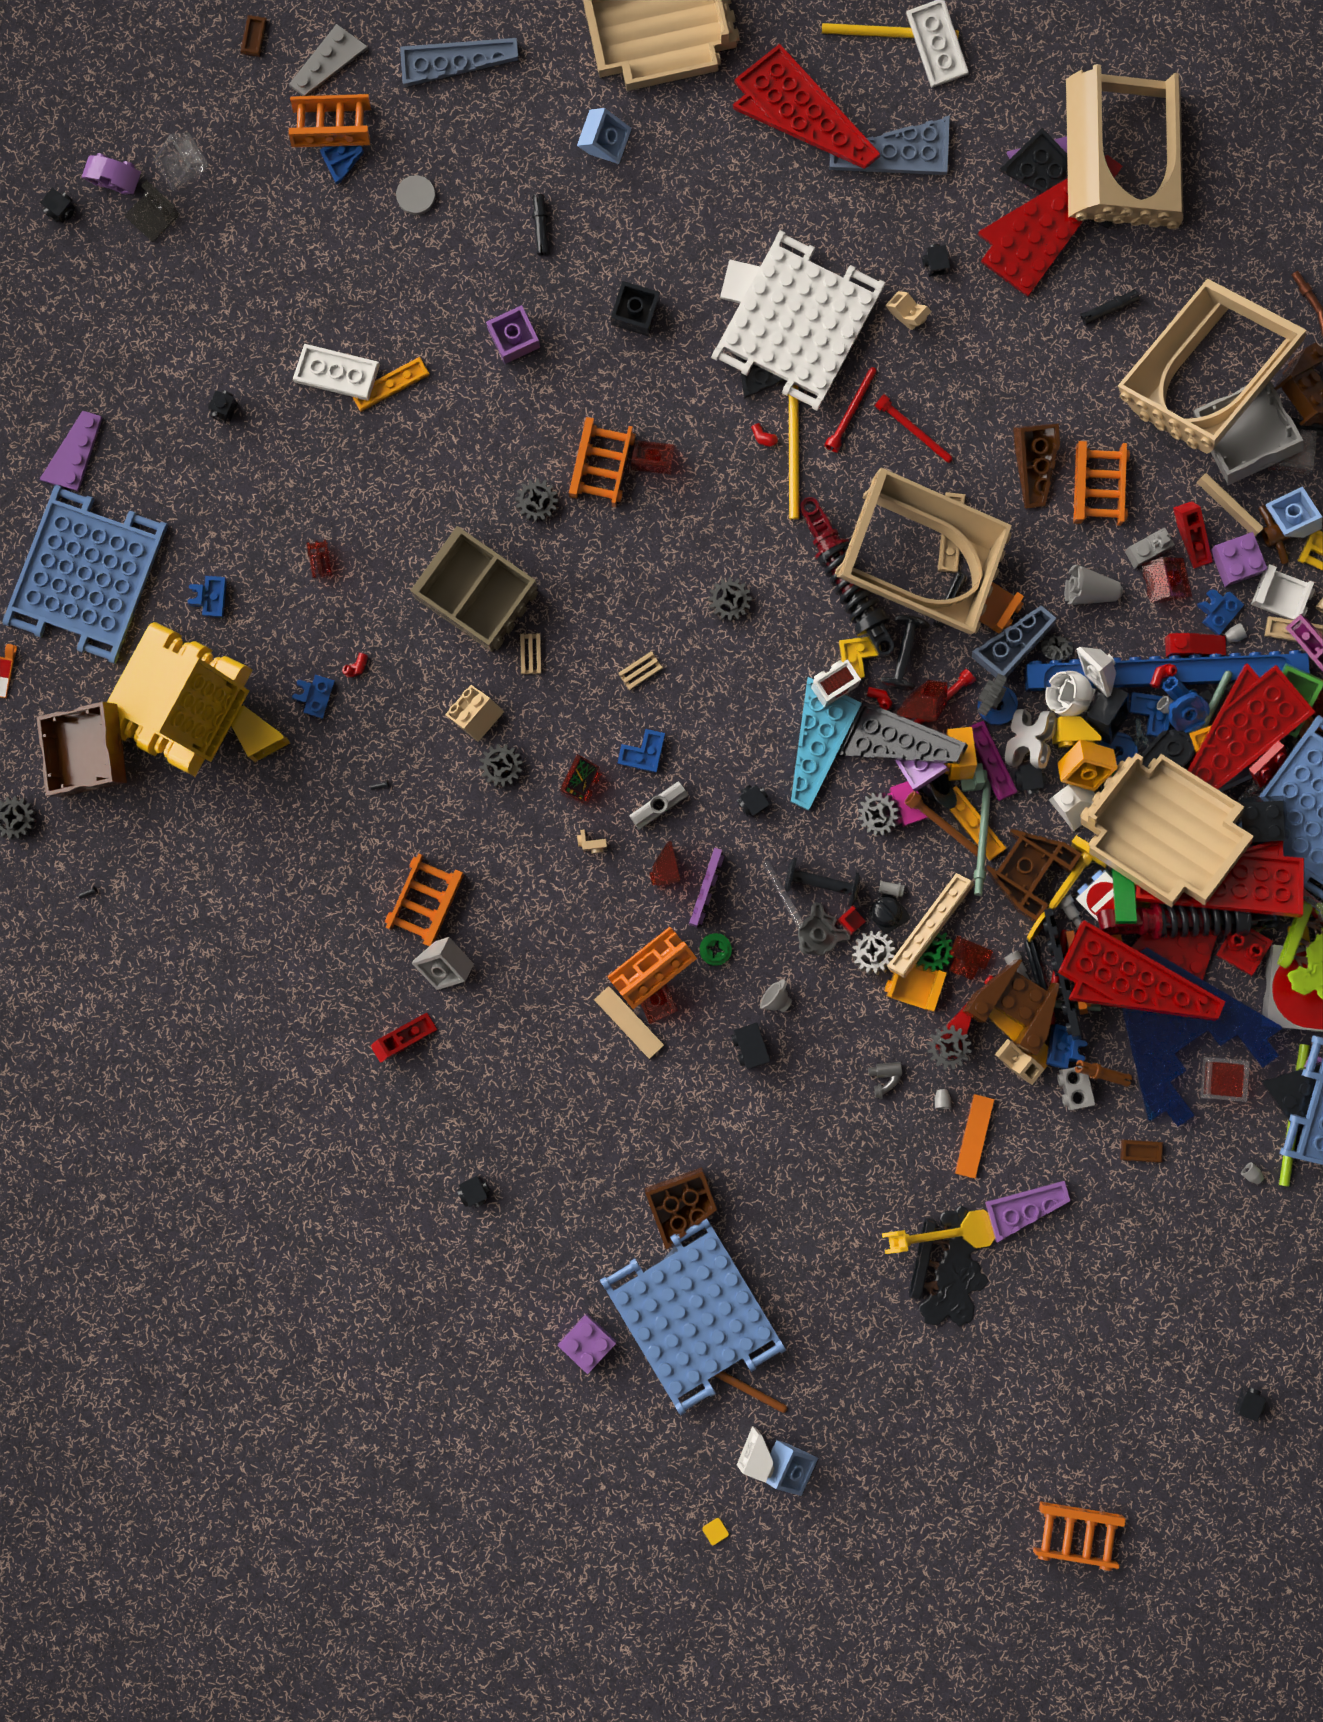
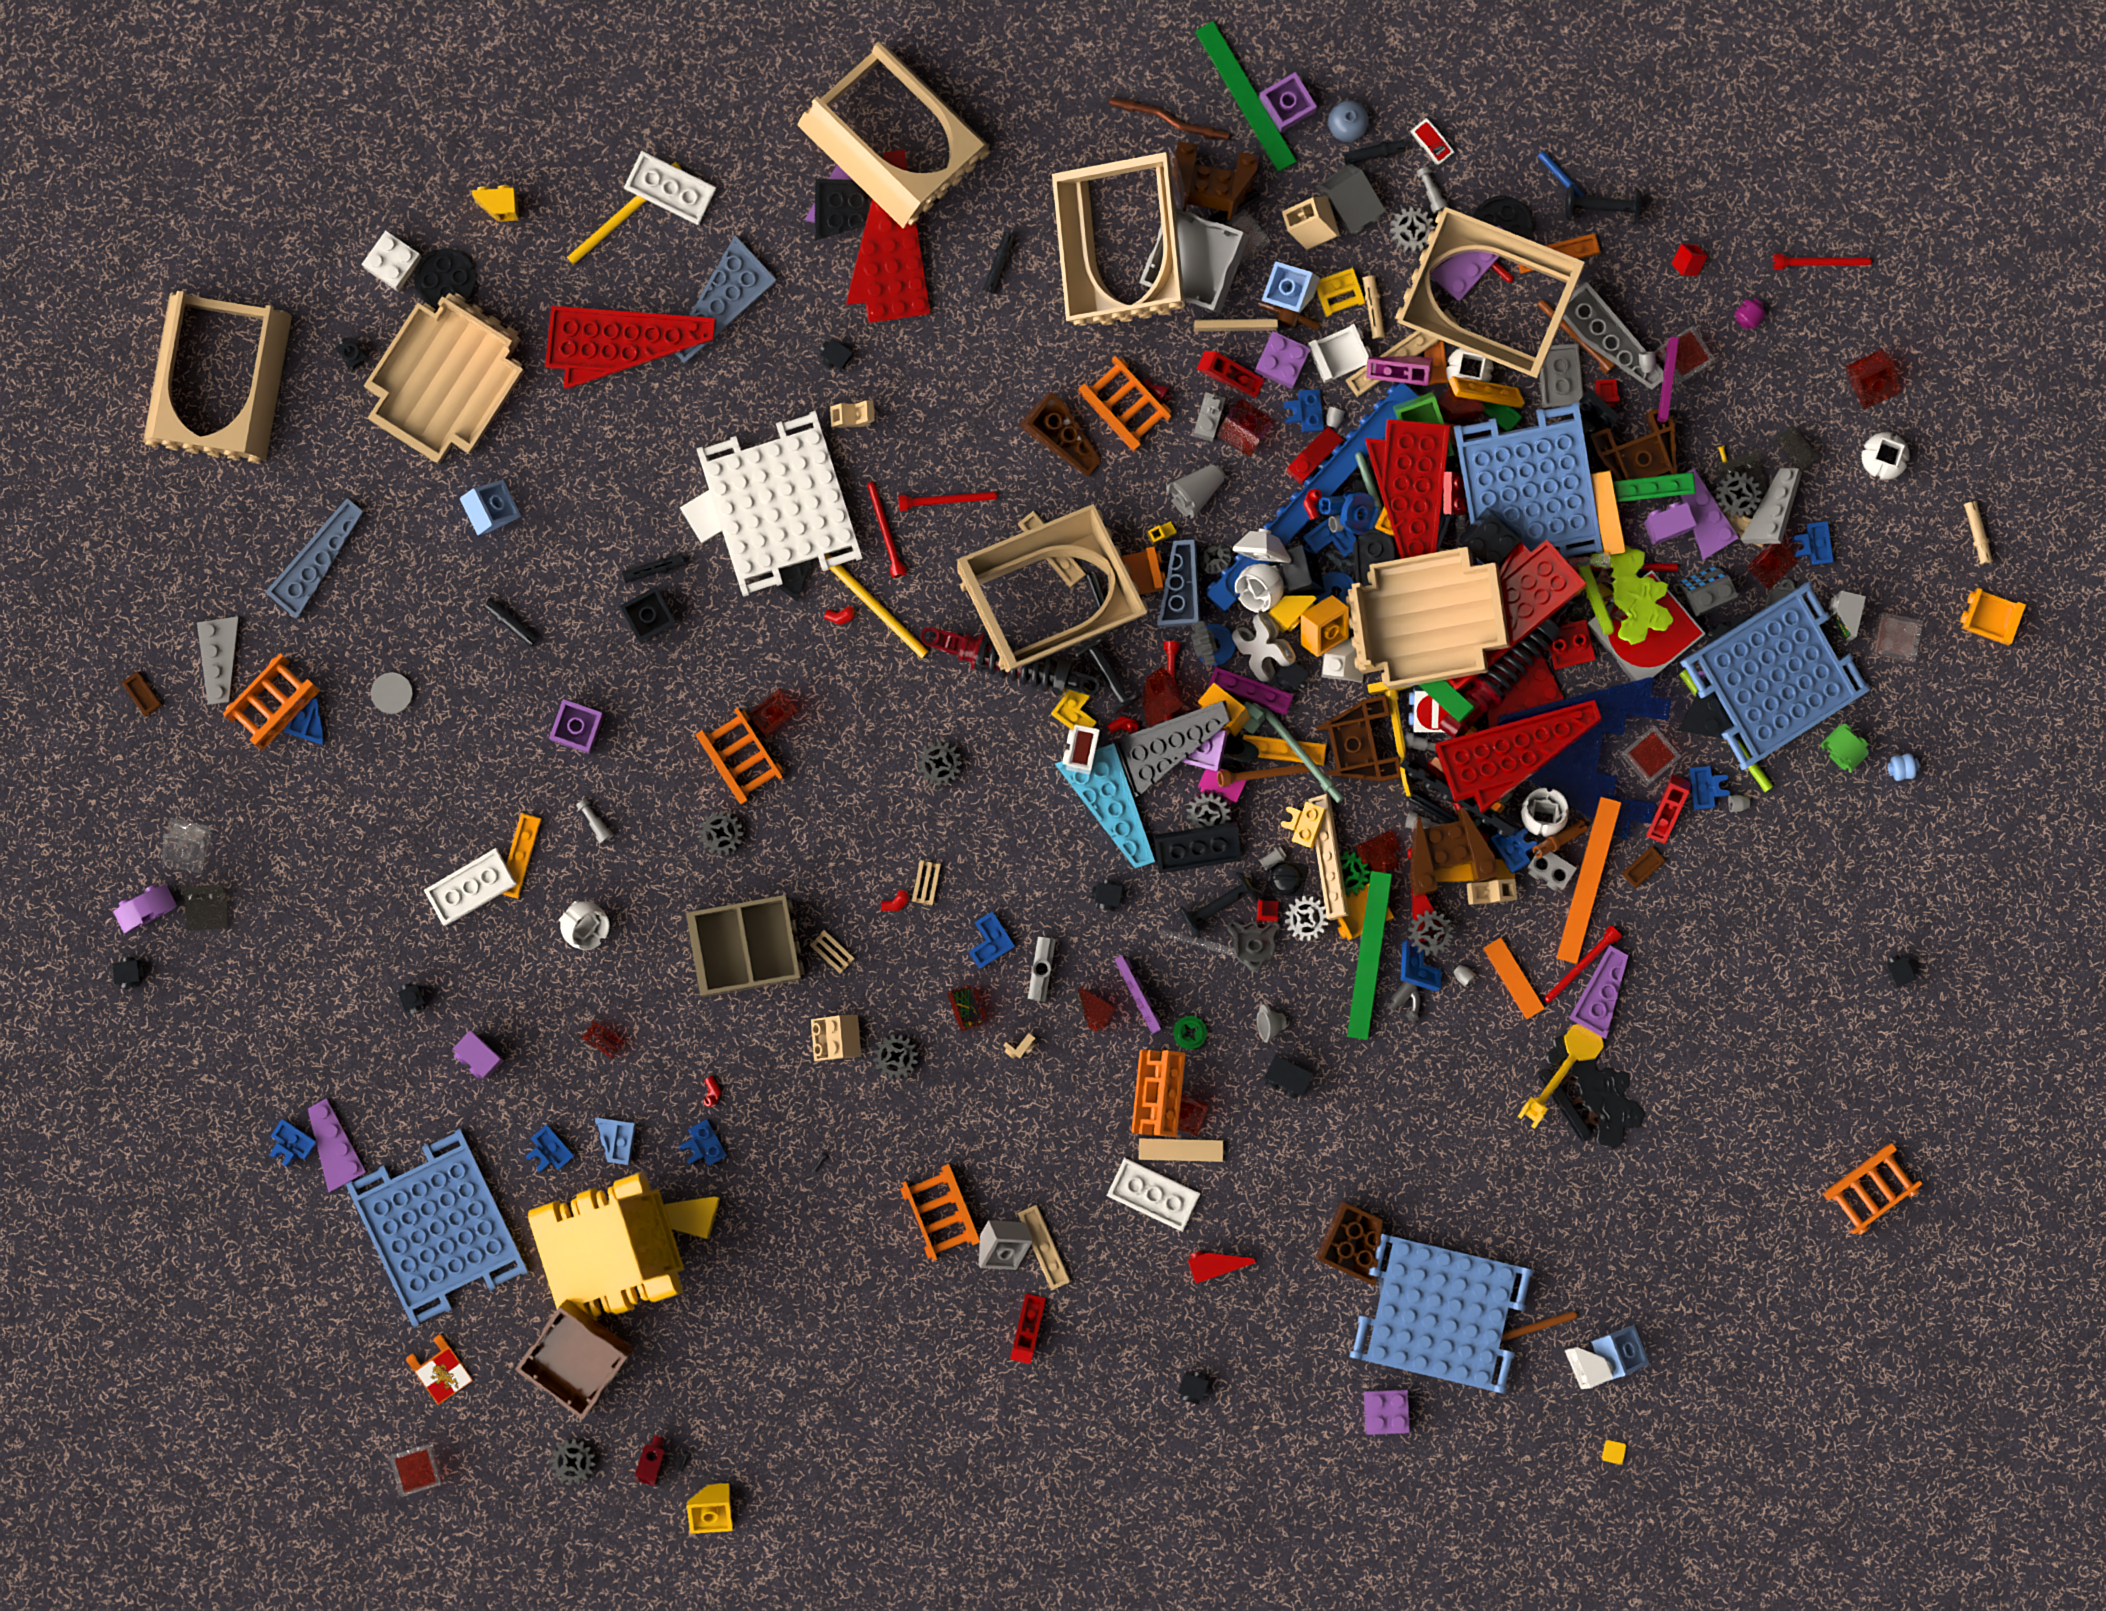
camera: 55 degrees left, 0 degrees up
(47, 422) = (291, 1143): none -> blue plate
(54, 873) = (648, 1471): none -> dark red torso
(70, 942) = (710, 1510): none -> yellow slope
(225, 485) = (478, 1055): none -> medium lavender brick
(261, 635) = (617, 1140): none -> medium blue wing
(383, 478) = (591, 928): none -> white piece
(459, 423) = (596, 823): none -> light grey piece
(470, 994) = (1044, 1248): none -> tan tile
(570, 1121) = (1211, 1265): none -> red slope
(579, 1033) = (1153, 1194): none -> white tile
(607, 665) = (897, 903): none -> red arm
(671, 282) = (629, 575): none -> black pin
(847, 829) = (1197, 847): none -> black plate
(891, 1020) = (1369, 955): none -> green tile
(912, 1062) = (1415, 971): none -> blue plate
(937, 887) = (1305, 823): none -> yellow plate
(1036, 594) = (1161, 533): none -> yellow piece
(1070, 1175) = (1610, 936): none -> red piece
(1095, 1121) = (1588, 880): none -> orange tile
(1120, 1040) = (1545, 802): none -> white piece
(1131, 499) = (1159, 392): none -> dark red piece
(1200, 1129) = (1669, 808): none -> red slope
(1240, 1140) = (1705, 787): none -> blue plate

